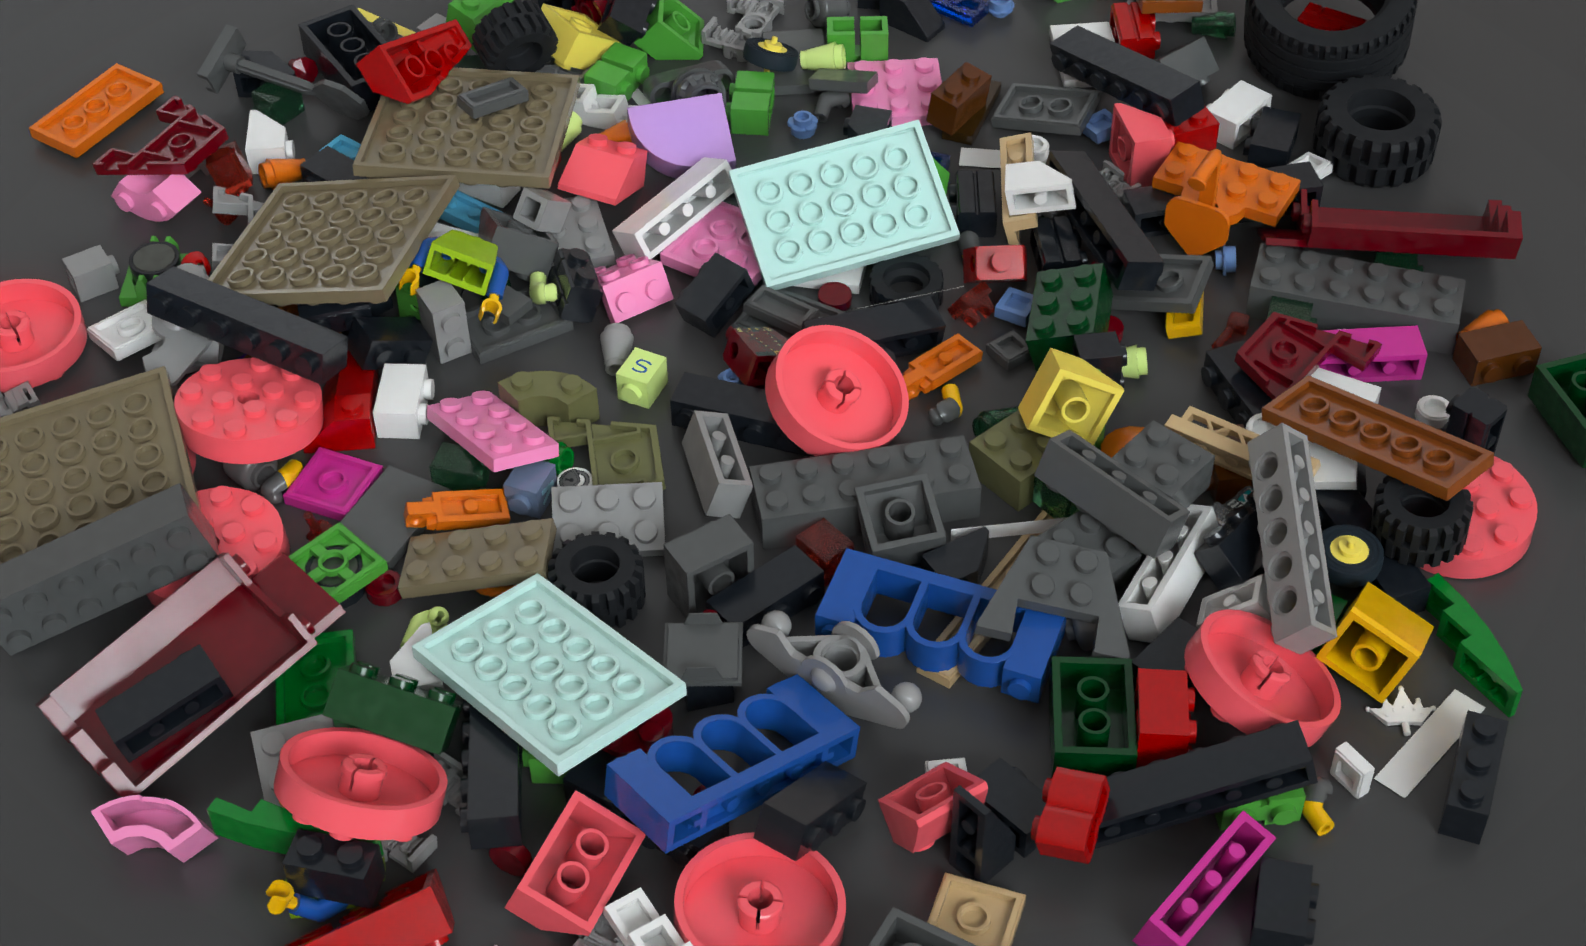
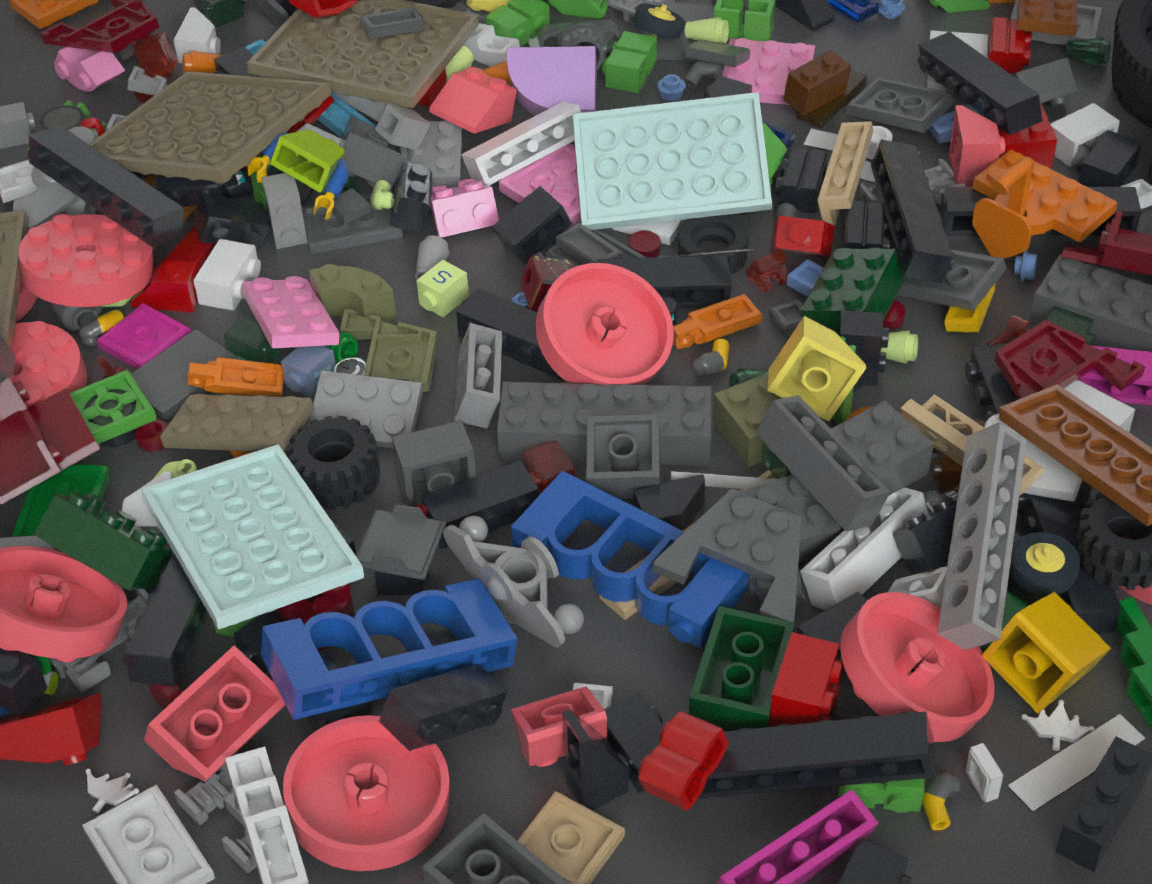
camera: 15 degrees right, 0 degrees up
(1037, 189) = (853, 172): white slope -> none

